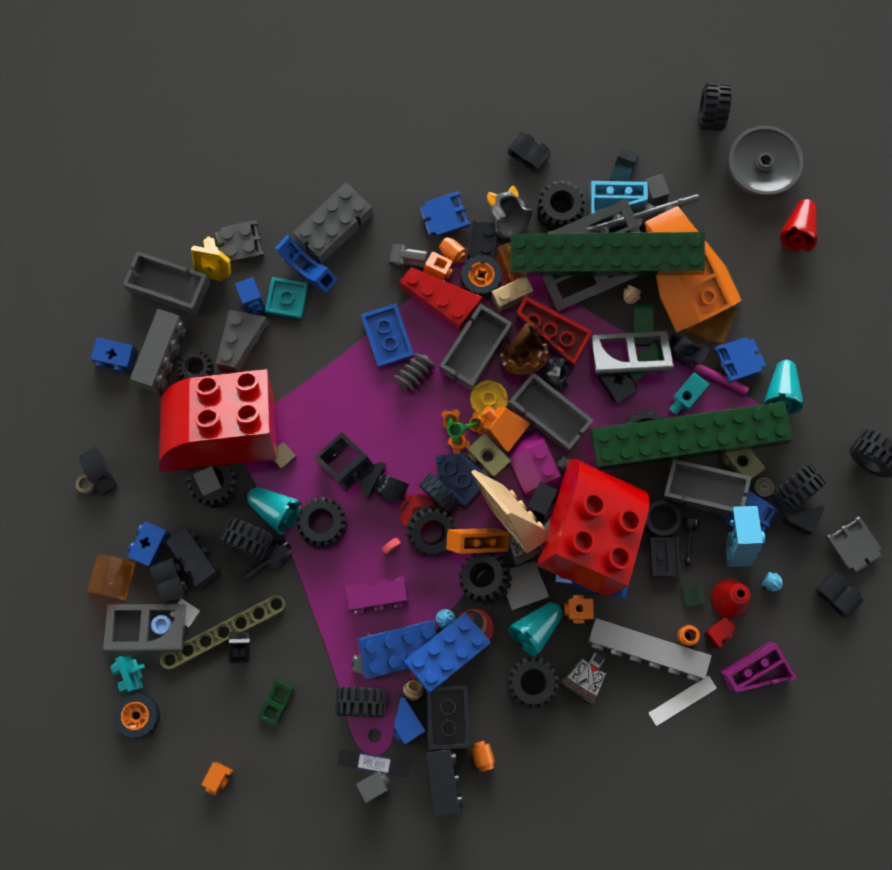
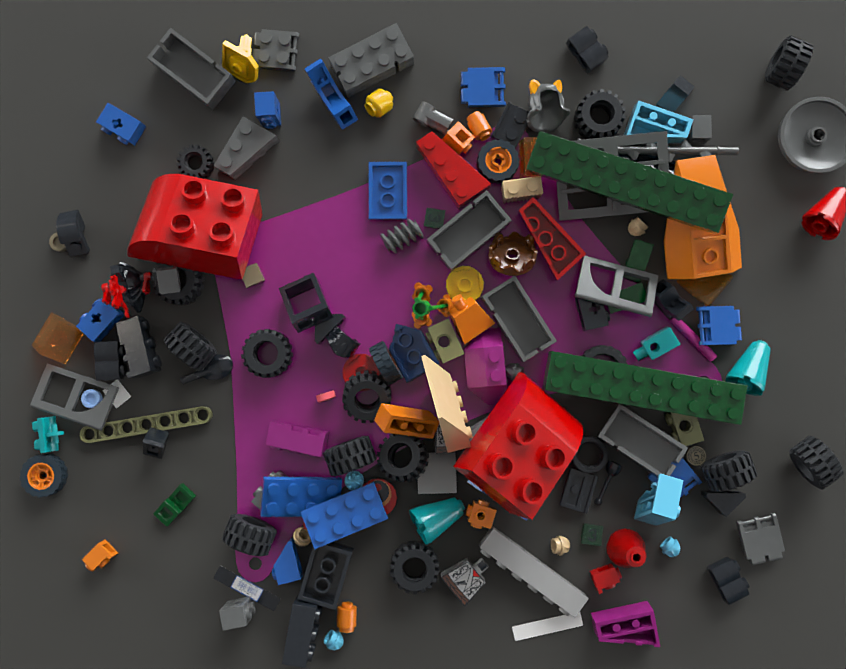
camera: 20 degrees right, 10 degrees up
(159, 352) = (163, 136): dark grey piece -> none
(167, 502) = (126, 285): none -> helmet
(275, 509) = (227, 325): teal cone -> none
(286, 298) = (303, 121): teal tile -> none
(352, 259) = (379, 103): none -> yellow head
(433, 592) = (349, 456): none -> black tyre
(439, 347) = (434, 218): none -> clear green tile
(477, 784) = (333, 640): none -> medium azure plate
(521, 338) = (514, 238): reddish brown tile -> none
(541, 500) = (480, 401): black slope -> none
(556, 372) = (537, 281): black hair -> none
(666, 615) = (560, 545): none -> tan plate
(693, 633) = (578, 575): orange brick -> none

